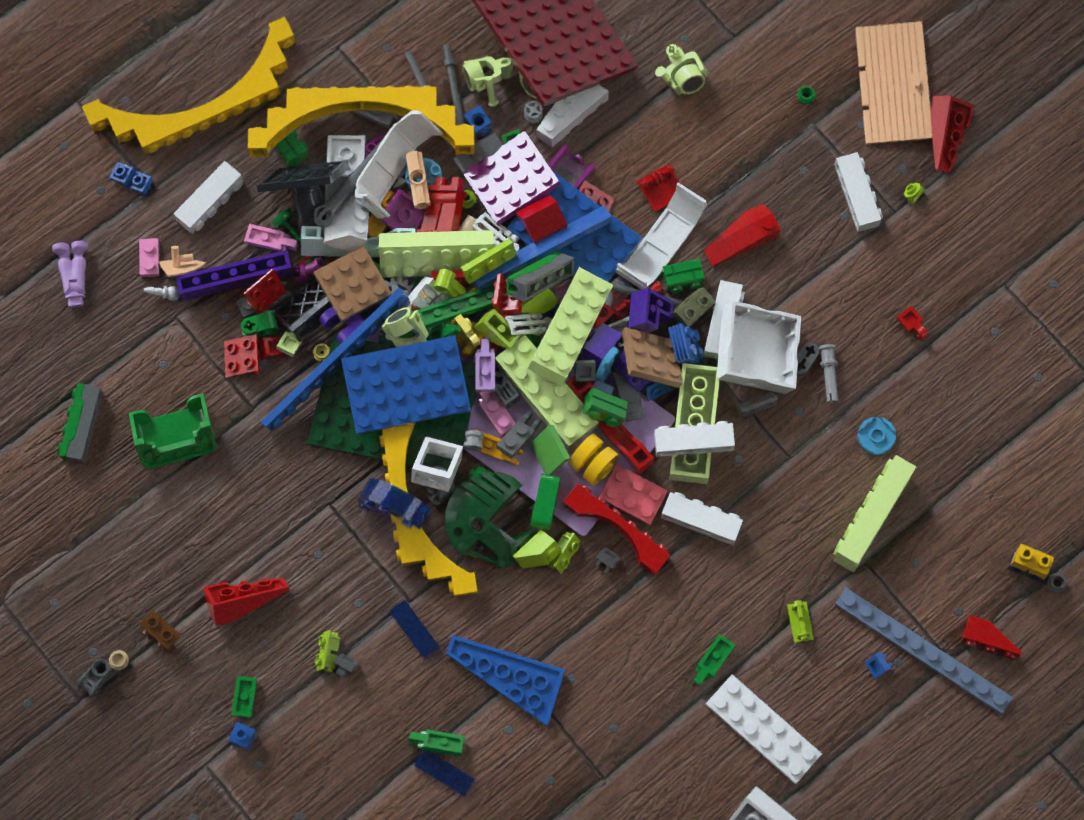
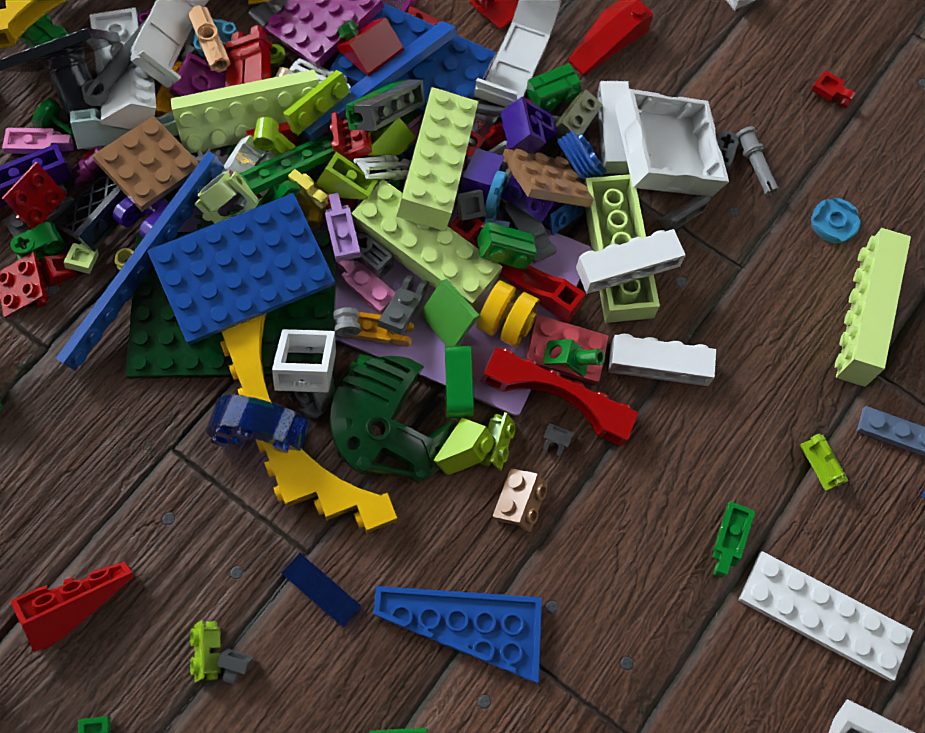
camera: 20 degrees left, 5 degrees down
(526, 202) = (348, 29): none -> green plate
(569, 598) = (521, 499): none -> bracket
(632, 502) = (573, 356): none -> green bracket

